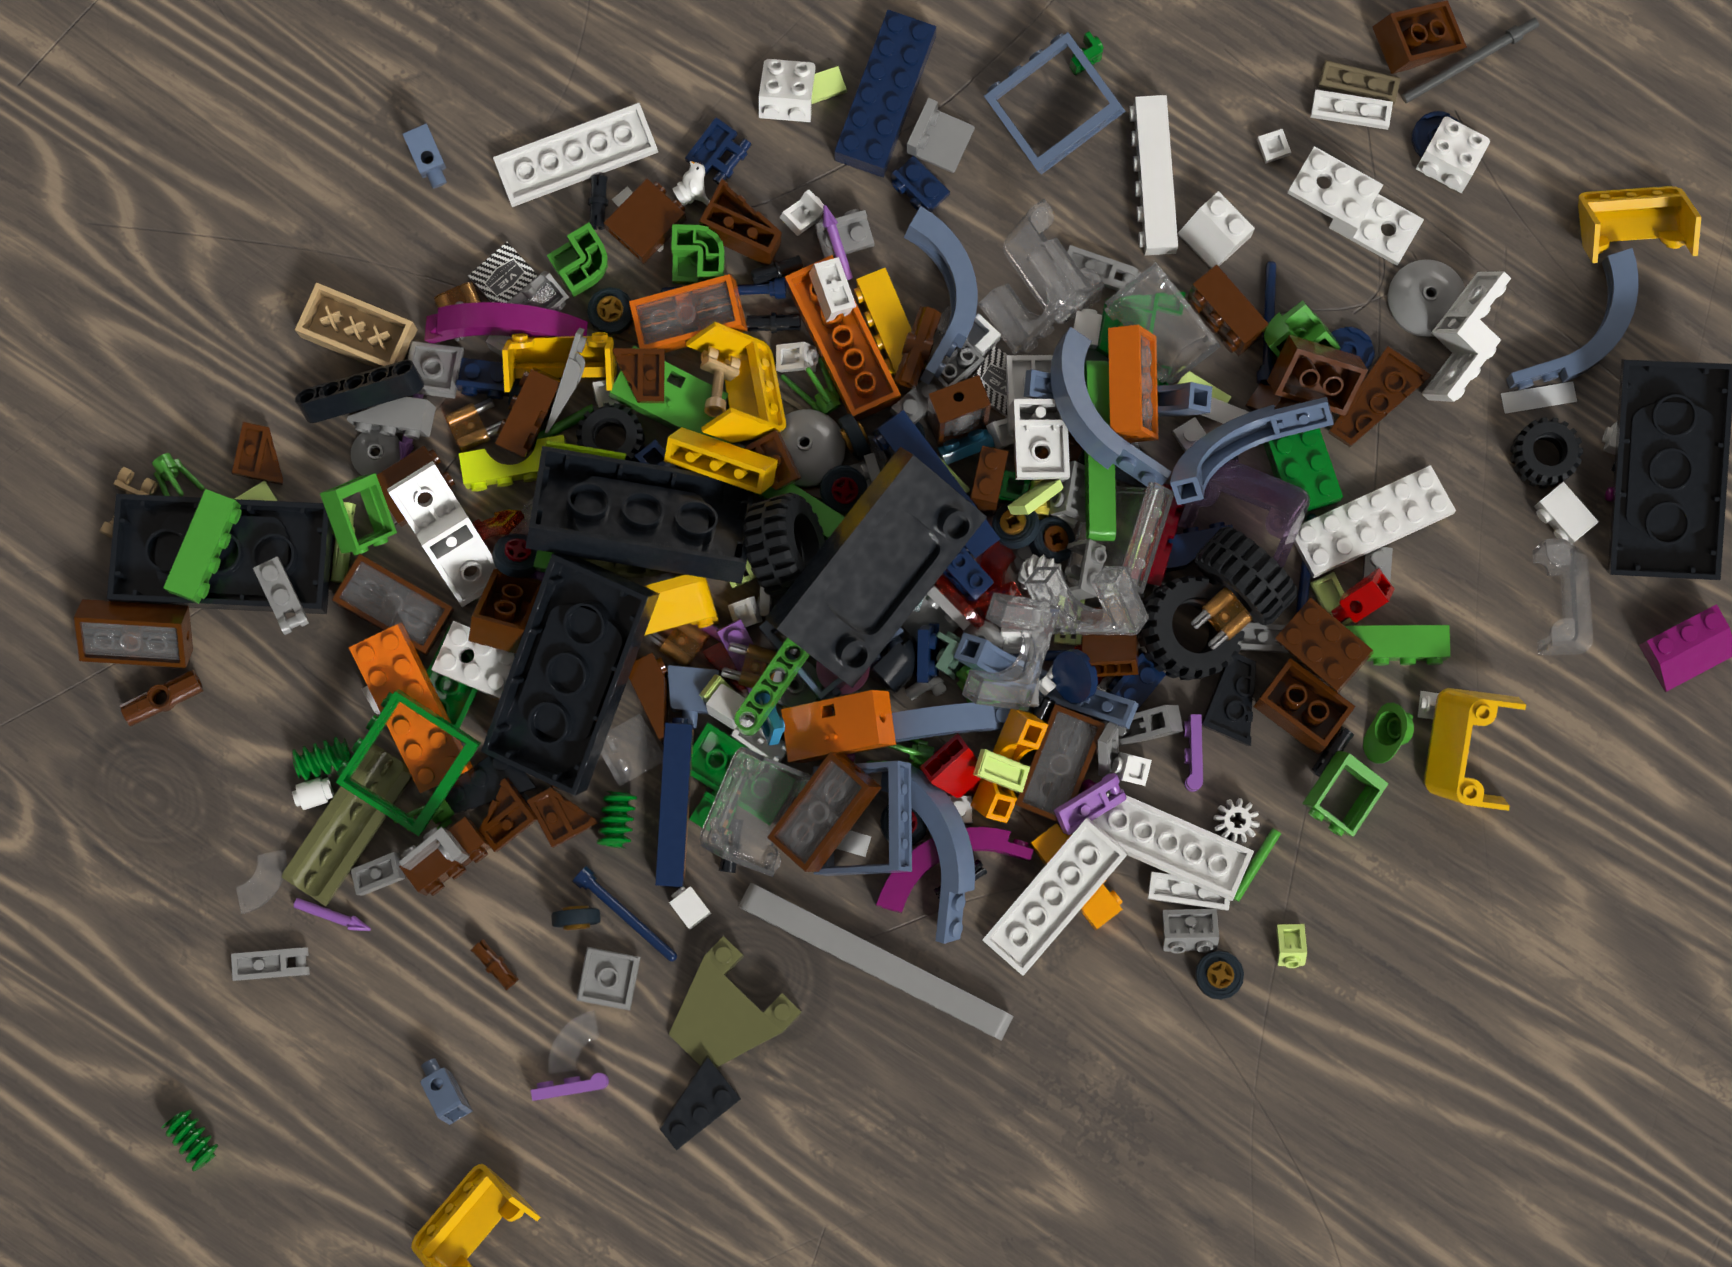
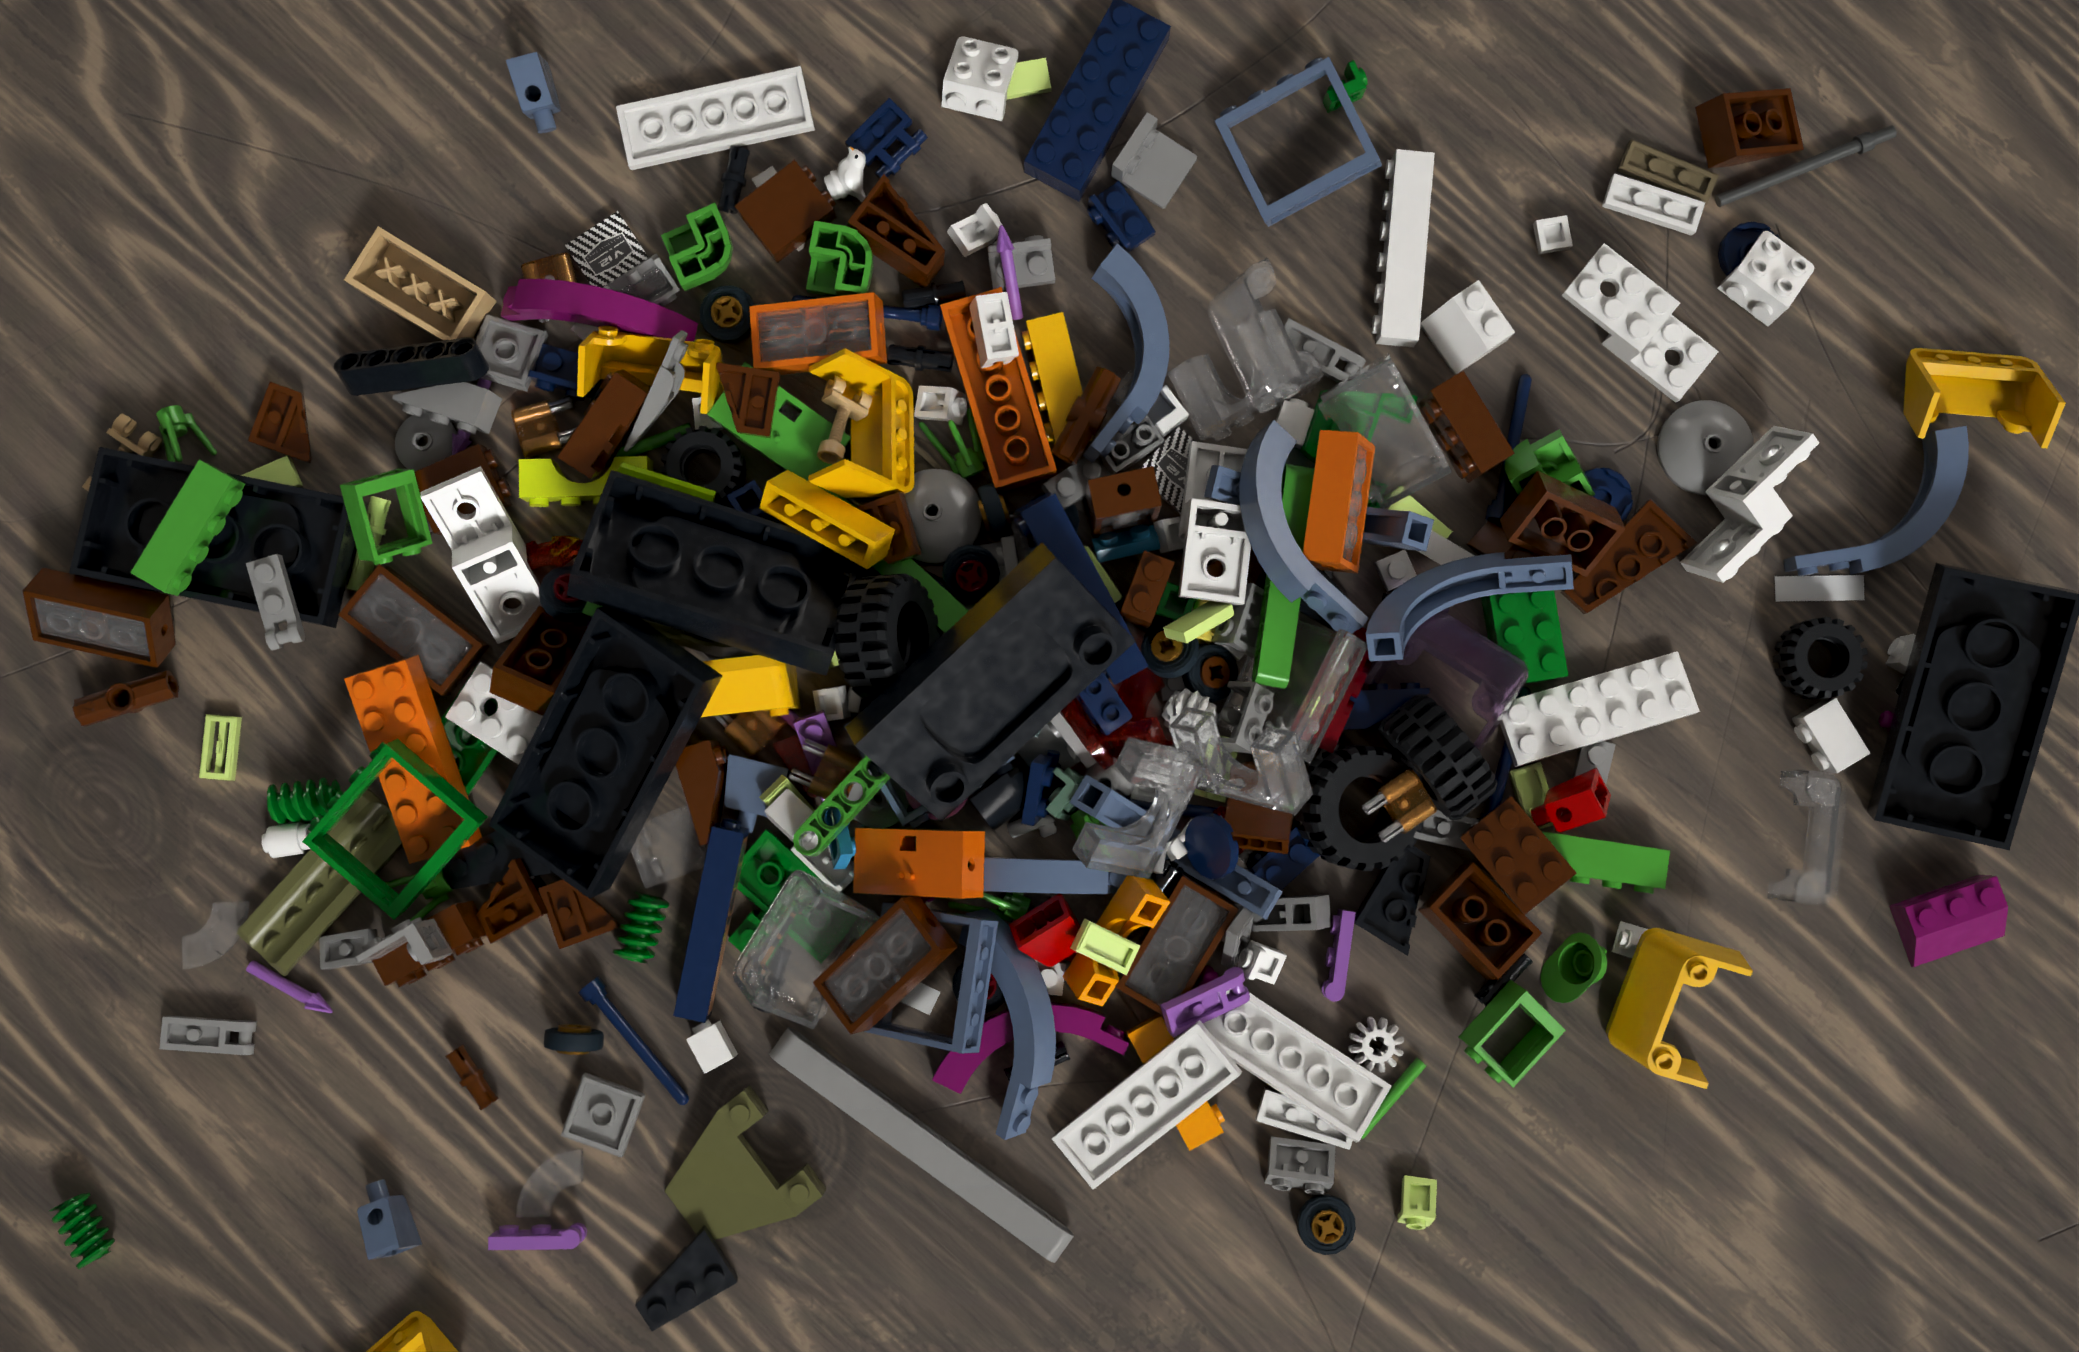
camera: 10 degrees right, 5 degrees up
(244, 727) = (232, 747): none -> yellowish green tile

